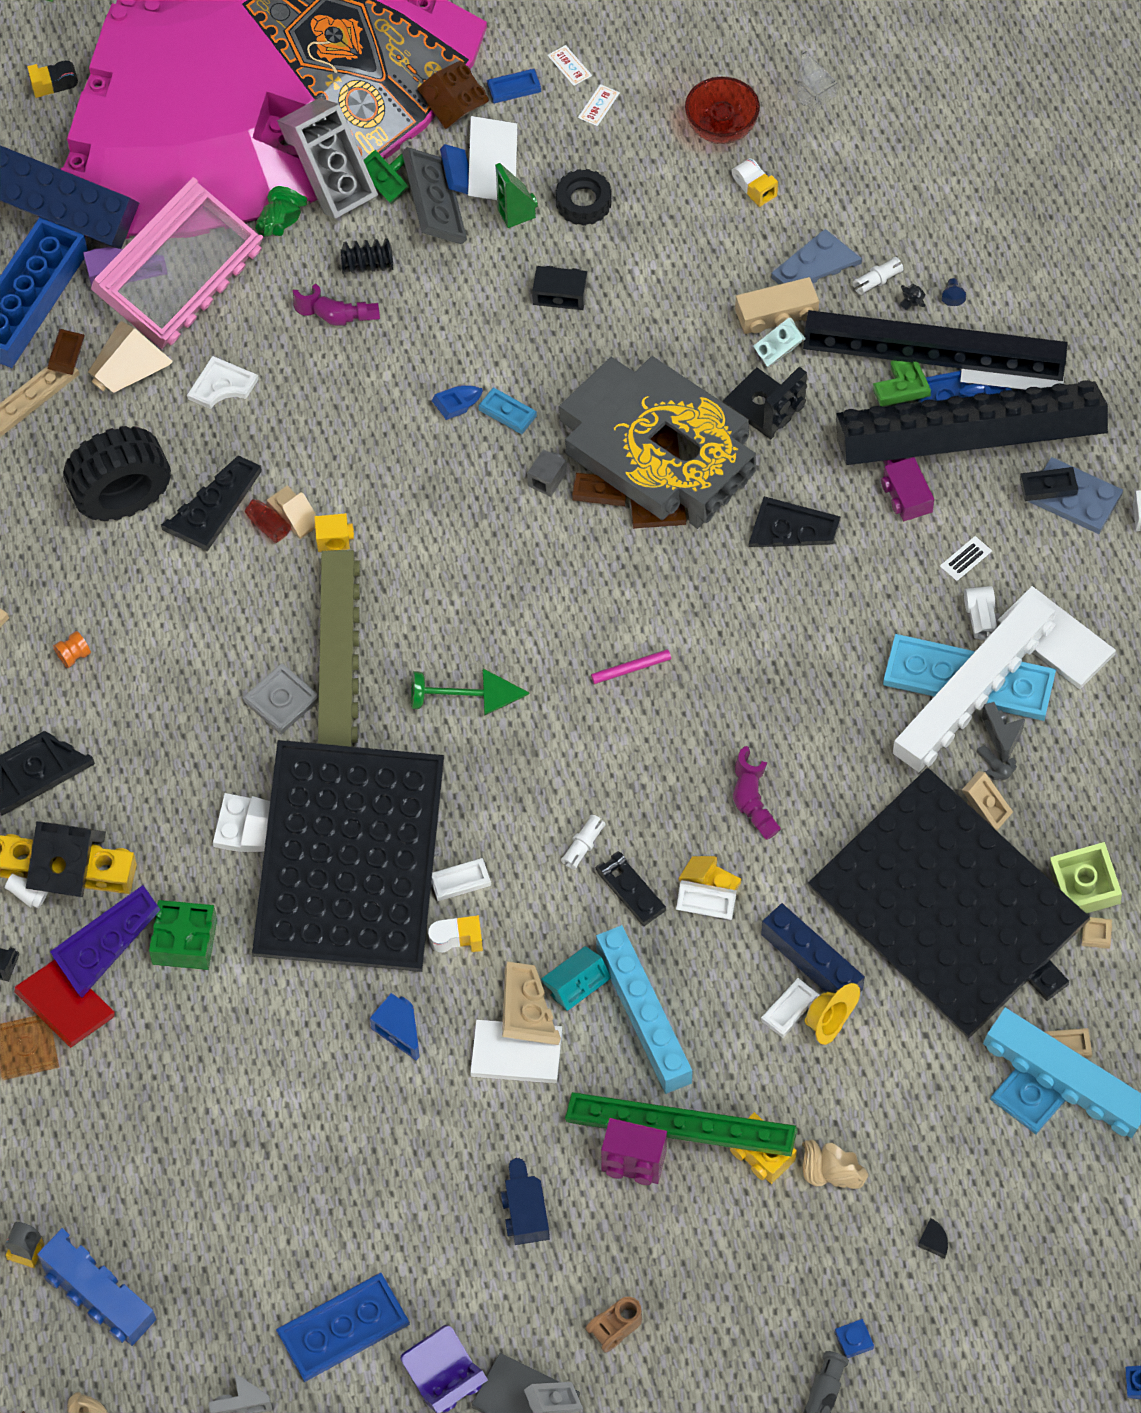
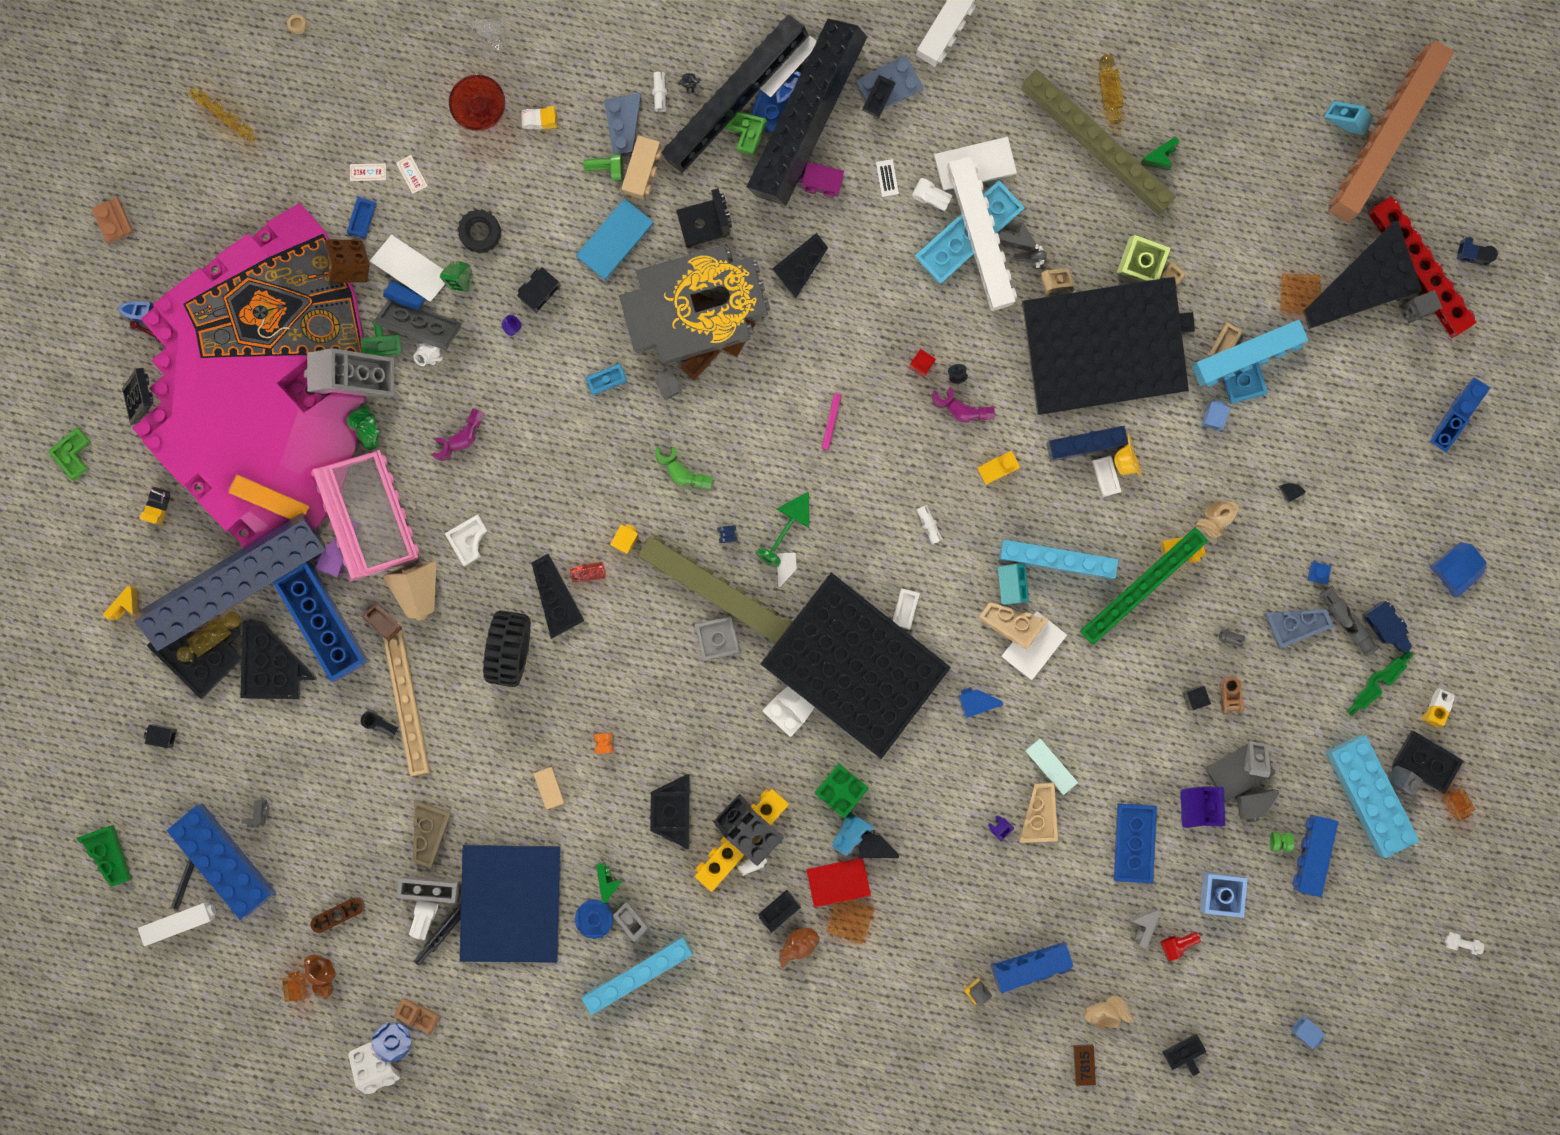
camera: 55 degrees left, 25 degrees up
(97, 945) = (819, 844): dark purple wing -> none
(131, 154) = (266, 498): none -> light orange tile
(132, 976) = (850, 833): none -> dark azure wing
(138, 1015) = (875, 846): none -> black slope
(255, 1150) = (1002, 830): none -> dark purple tile
(294, 510) = (591, 552): tan slope -> none
(301, 1190) = (1041, 815): none -> tan wing
(366, 255) = (434, 393): black piece -> none
(375, 1164) = (1051, 766): none -> light aqua tile
(405, 223) = (427, 354): none -> white rock
(414, 633) = (727, 534): none -> dark blue wheel
(420, 722) = (787, 566): none -> white sticker
(451, 541) = (680, 474): none -> bright green piece
(456, 400) = (578, 404): blue plate -> none
(456, 933) = (937, 640): leg -> none
(500, 284) = (511, 325): none -> dark purple tile
(526, 1205) = (1131, 700): dark blue hinge -> none
(582, 1280) = (1196, 698): none -> black brick
(631, 889) = (976, 516): black plate -> none
(633, 1151) = (1144, 622): magenta brick -> none
(676, 329) = (614, 239): none -> dark azure tile
(691, 1278) = (1230, 637): none -> dark grey pin
(706, 900) = (1012, 479): white tile -> none
(757, 277) = (614, 163): none -> bright green piece
(765, 1352) = (1297, 625): none -> sand blue wing
(772, 716) = (922, 363): none -> red brick
(779, 342) = (670, 185): light aqua hips -> none
(789, 763) = (957, 373): none -> black wheel
(953, 294) = (702, 55): dark blue rock -> none
(960, 1084) = (1215, 415): none -> medium blue brick

